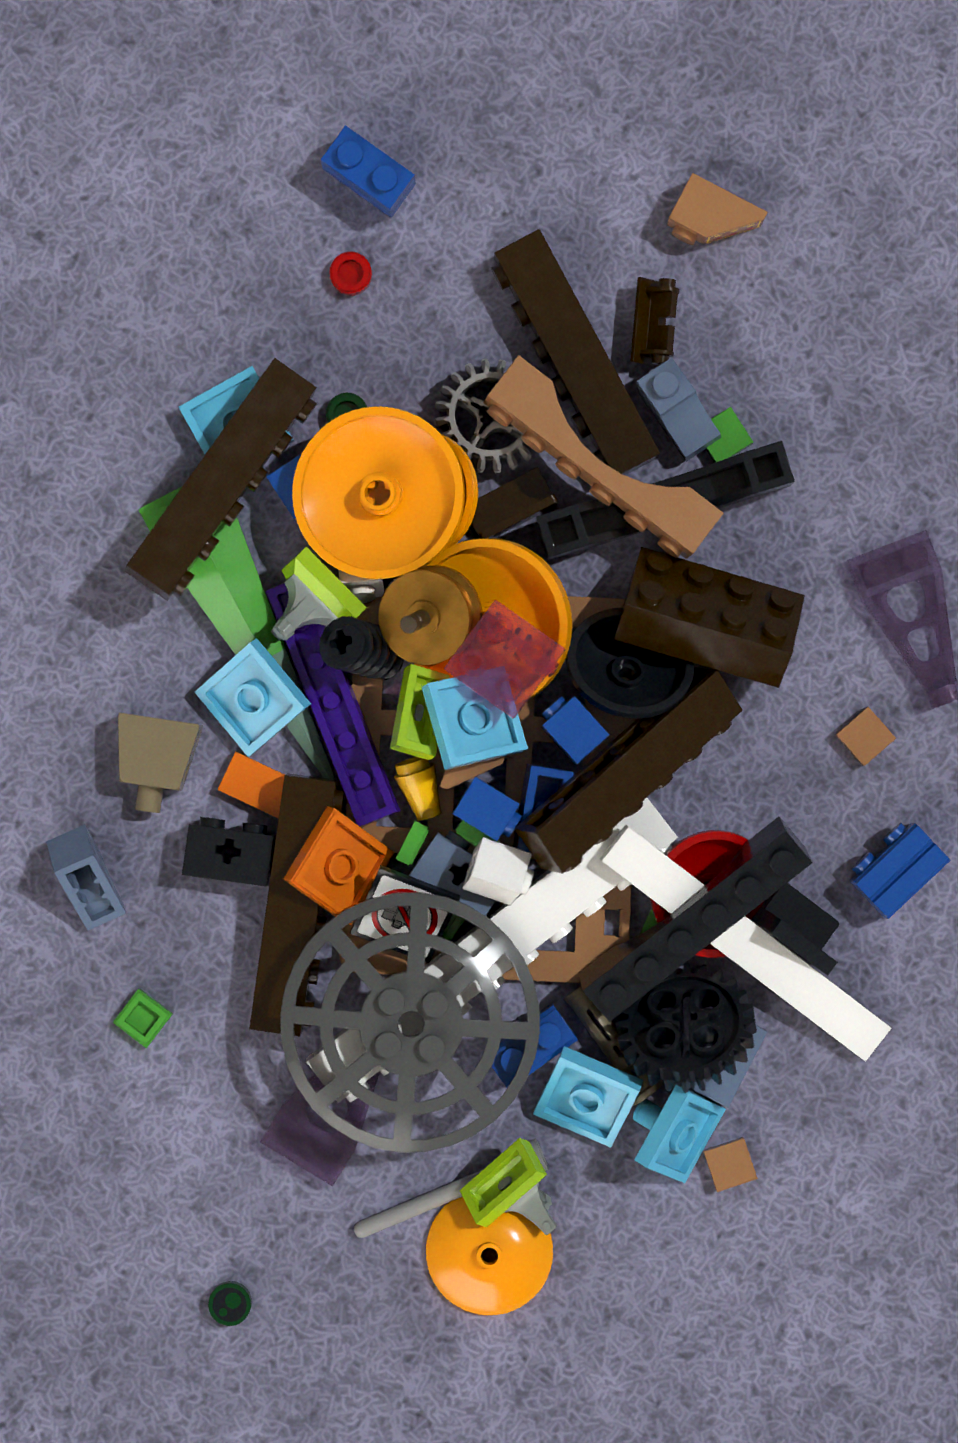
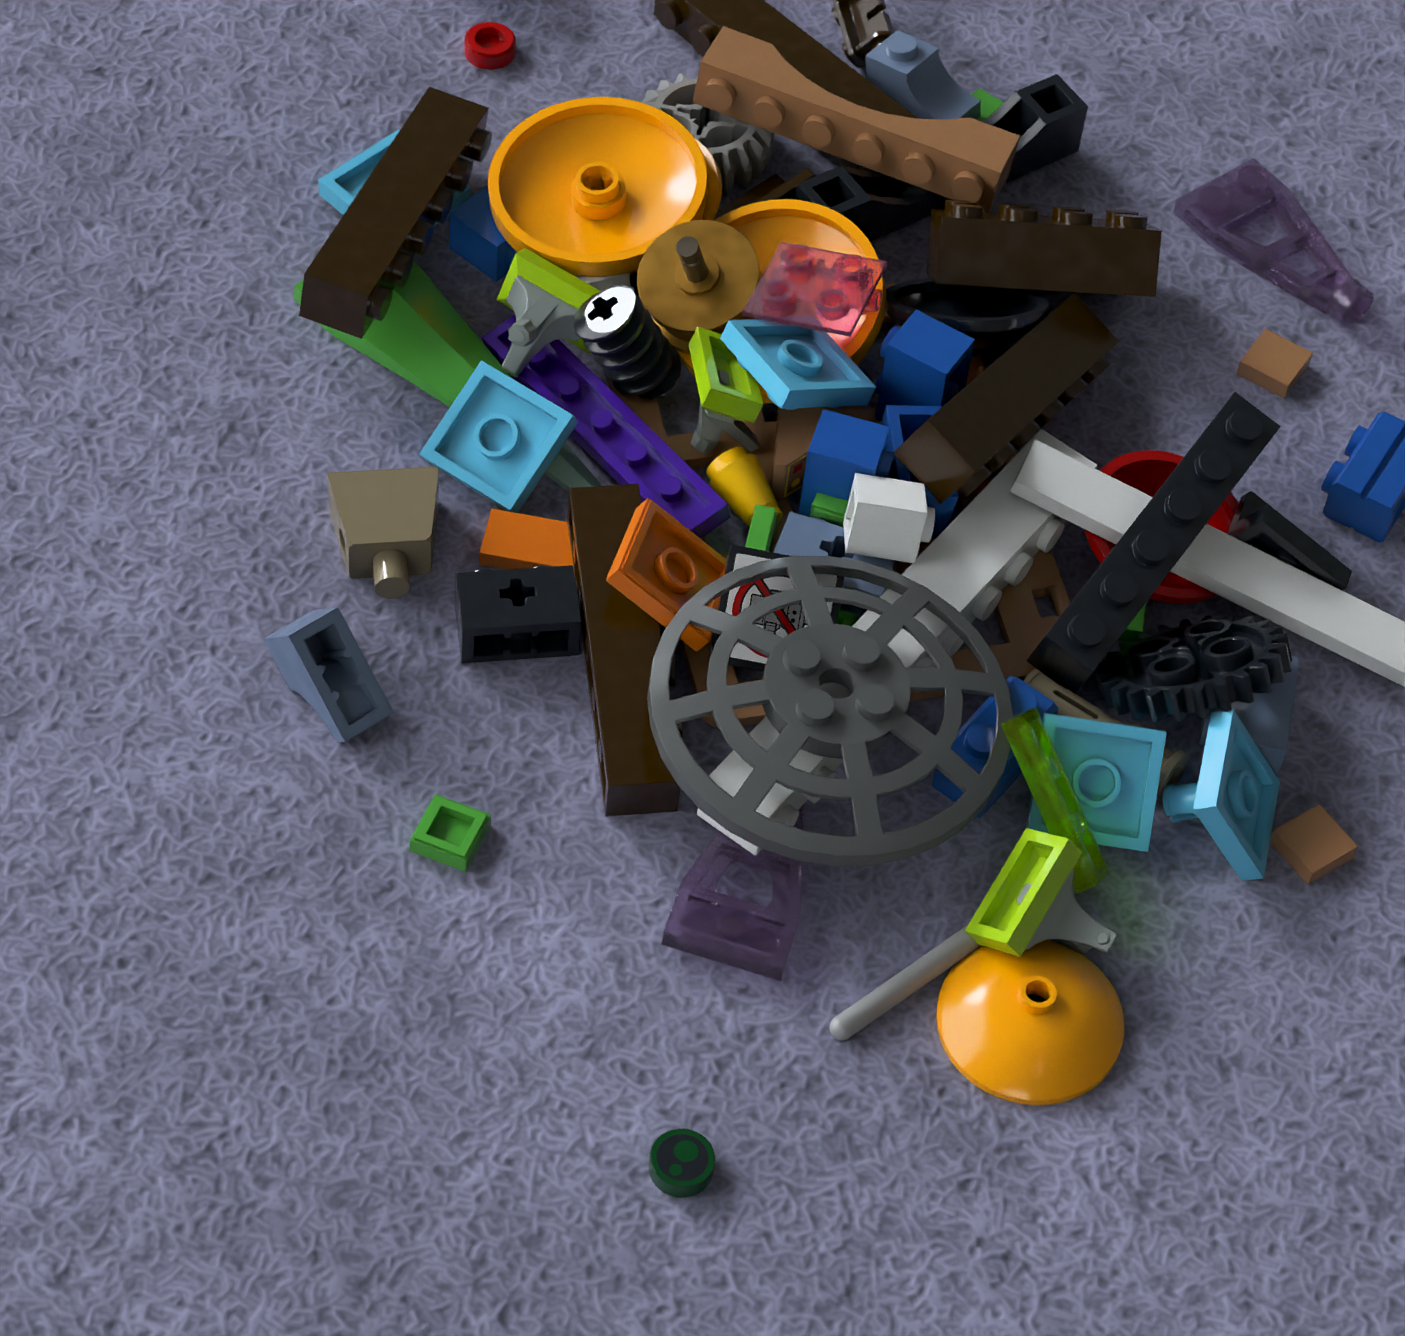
camera: 25 degrees left, 35 degrees down
(548, 1115) = (1054, 794): none -> clear neon green tile

